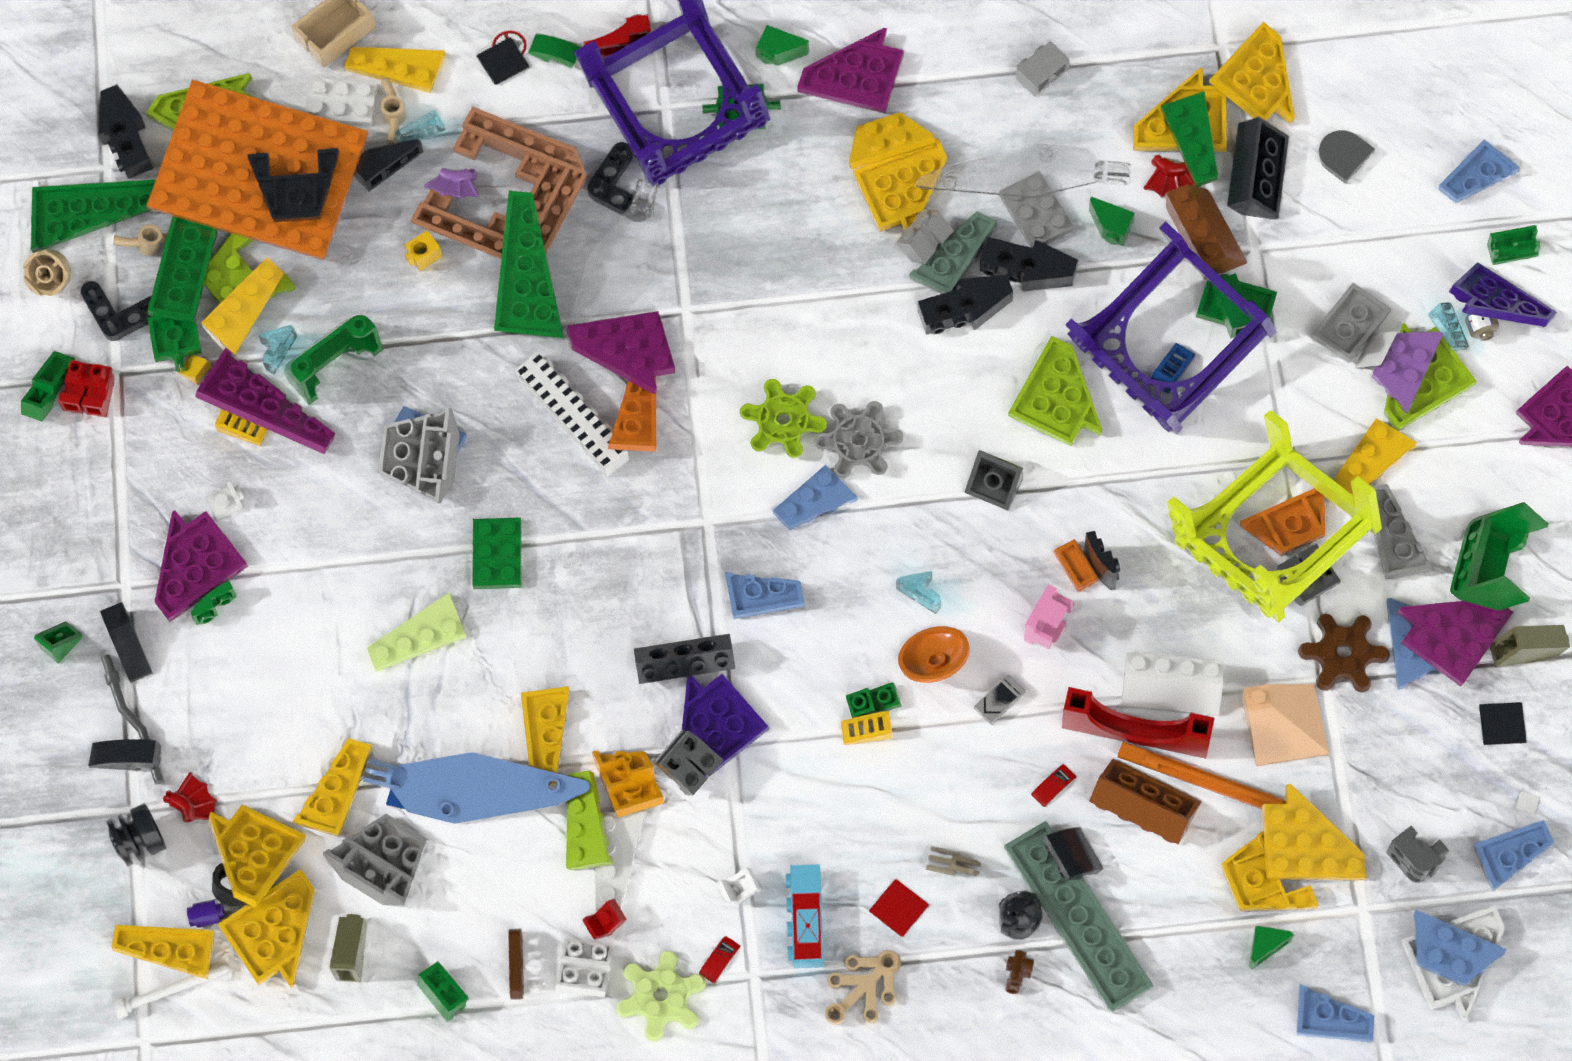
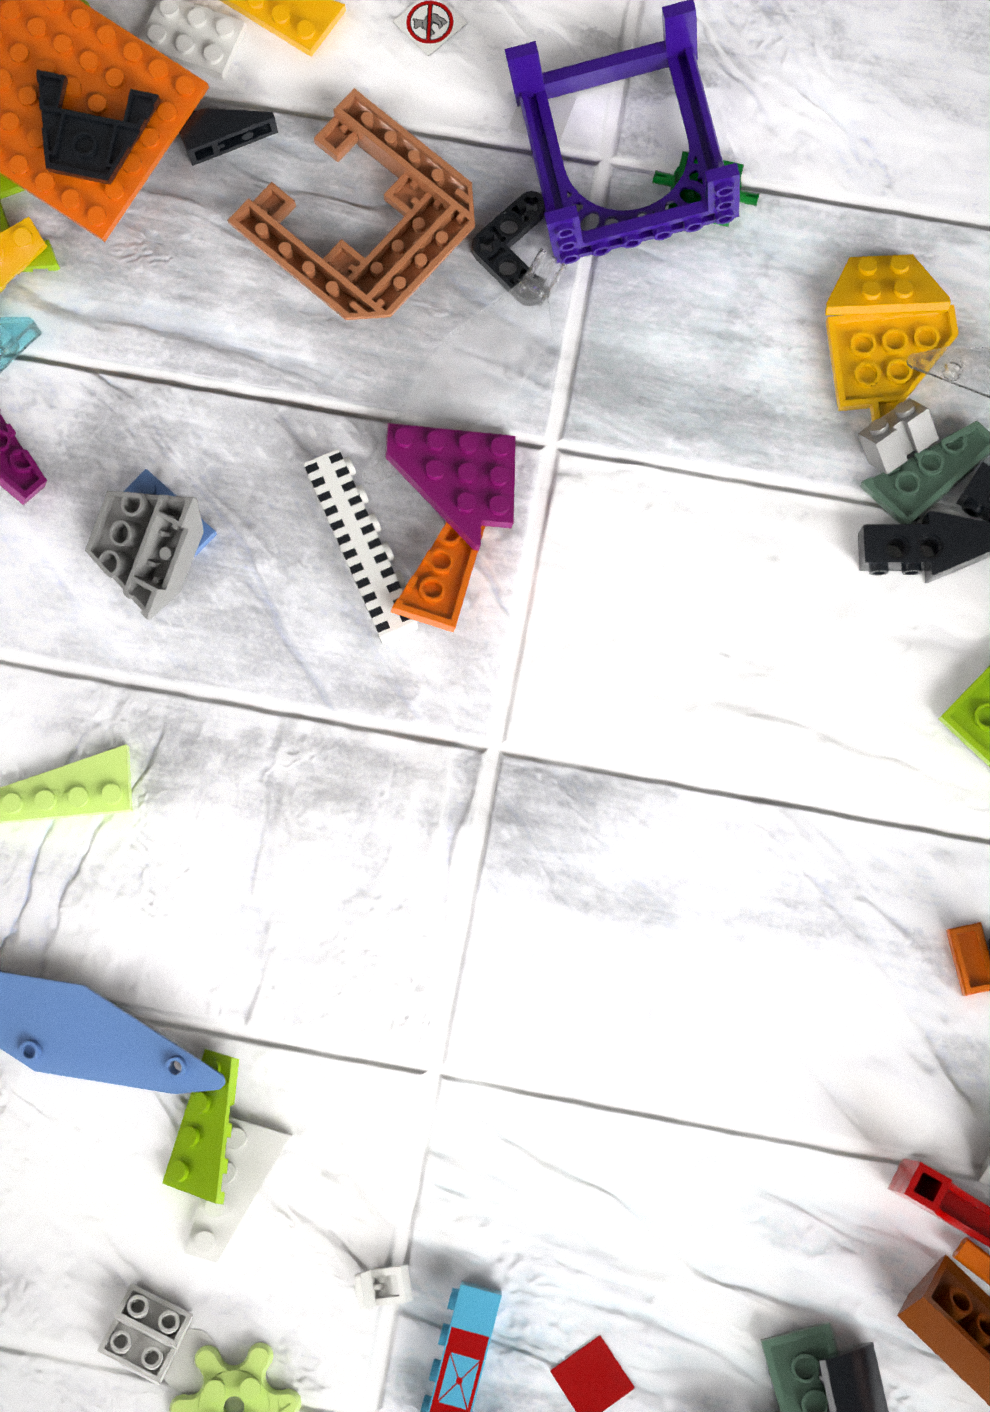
camera: 15 degrees right, 10 degrees up
(352, 333) = (28, 383): green windscreen -> none
(391, 102) = (250, 55): tan piece -> none
(422, 128) = (283, 100): clear light blue slope -> none
(422, 242) = (233, 253): yellow brick -> none
(454, 183) = (302, 185): medium lavender arm -> none
(497, 553) = (206, 707): green plate -> none
(502, 61) = (415, 39): black sticker -> none
(516, 968) = (54, 1302): reddish brown beam -> none
(525, 285) = (350, 350): green wing -> none
(544, 726) = (192, 975): yellow wing -> none
(554, 48) = (482, 39): green slope -> none
(605, 920) = (188, 1279): red bracket -> none
(628, 781) = (282, 1085): light orange slope -> none
(634, 29) = (593, 44): red slope -> none
(684, 658) = (405, 936): black brick -> none
(688, 762) = (352, 1082): dark grey hips -> none
(719, 959) = (329, 1377): red sticker -> none
(721, 717) = (418, 1045): dark purple wing -> none
(759, 595) = (535, 874): medium blue wing -> none
(778, 404) = (639, 612): lime plate -> none
(780, 46) = (780, 121): green slope -> none
(816, 496) = (646, 757): medium blue wing -> none
(856, 74) = (868, 186): magenta wing -> none
(858, 425) = (741, 674): light grey plate -> none
(865, 720) = (651, 1113): yellow slope -> none
(874, 700) = (643, 1070): green slope -> none
(915, 588) = (743, 927): clear light blue slope -> none
(934, 654) = (739, 1020): orange dish -> none
(953, 863) = (682, 1343): dark tan arm -> none
(994, 480) = (895, 807): dark grey slope -> none
(999, 699) = (814, 1121): light grey tile -> none
(1046, 621) = (915, 1032): bright pink panel -> none
(1053, 785) = (853, 1267): red sticker -> none

